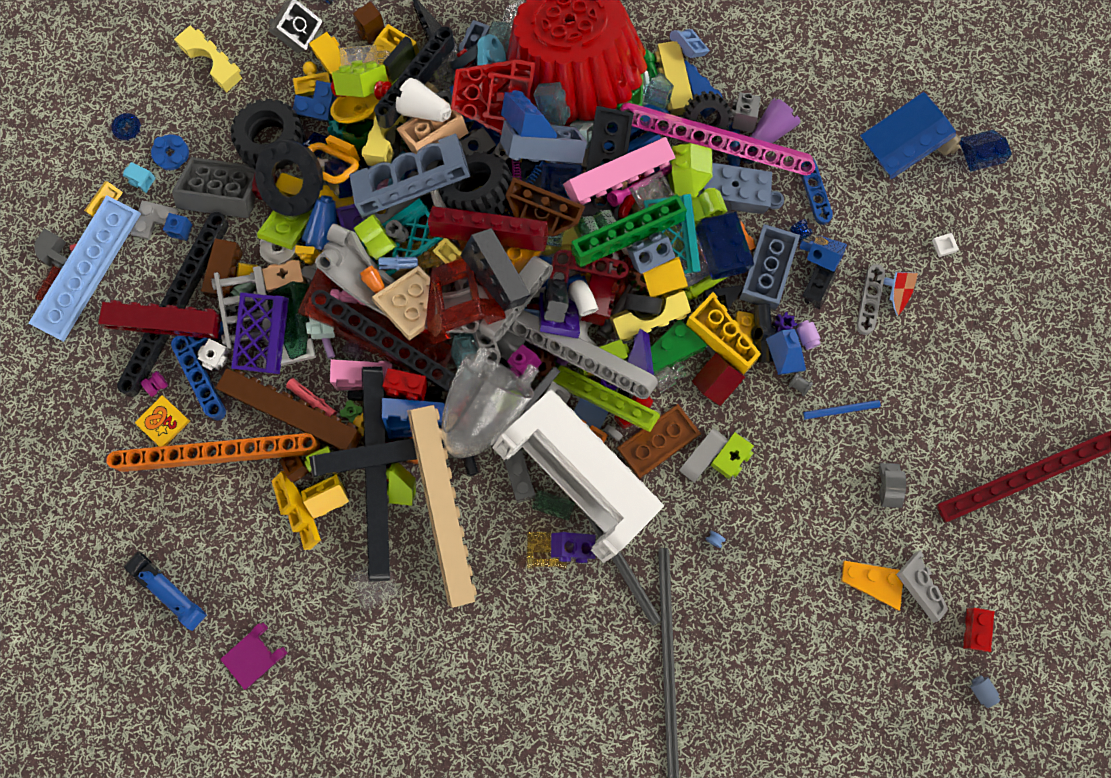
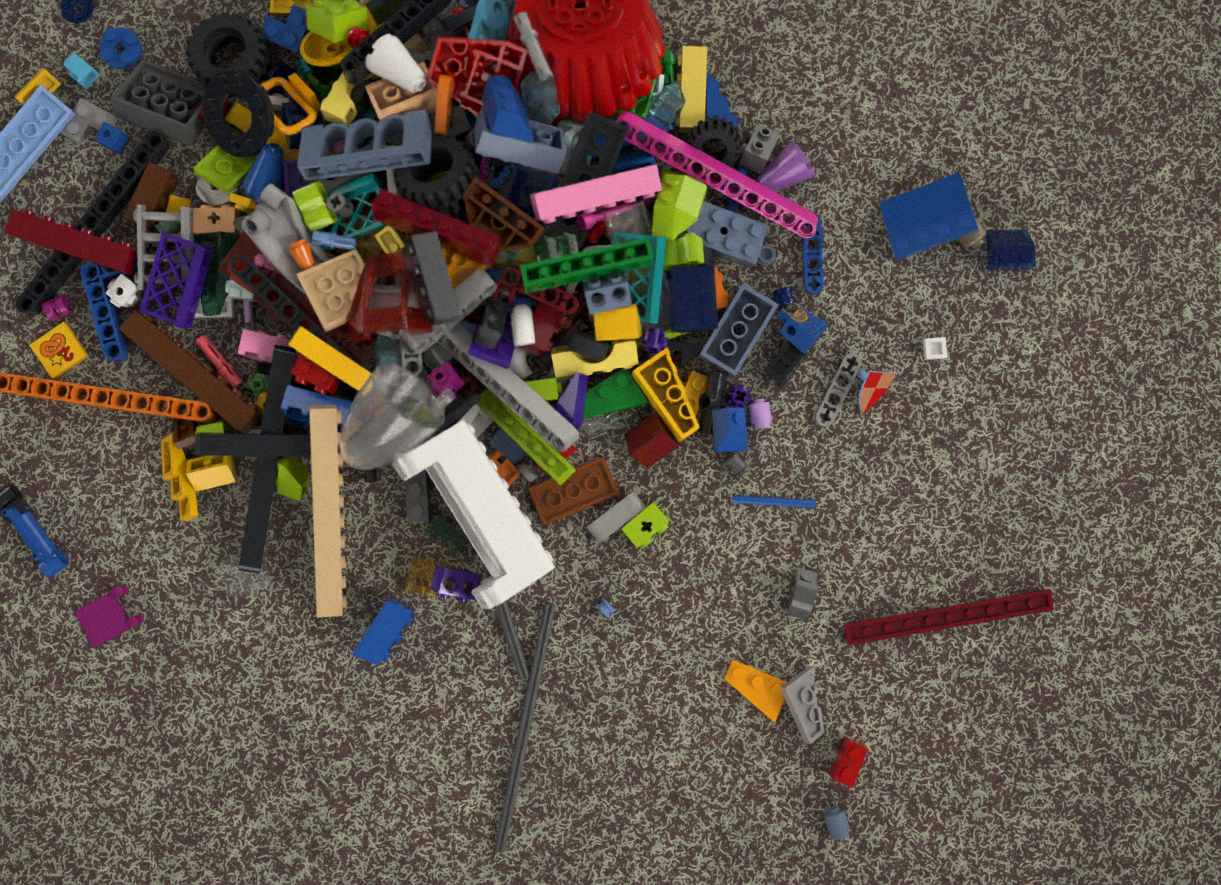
camera: 10 degrees right, 10 degrees up
(417, 364) = (329, 358): none -> yellow slope
(470, 126) = (443, 105): none -> orange beam
(518, 607) = (384, 631): none -> blue slope
(535, 53) = (529, 37): none -> light grey pin
(690, 43) = (719, 58): medium blue plate -> none
(700, 288) = (654, 340): none -> dark purple gear

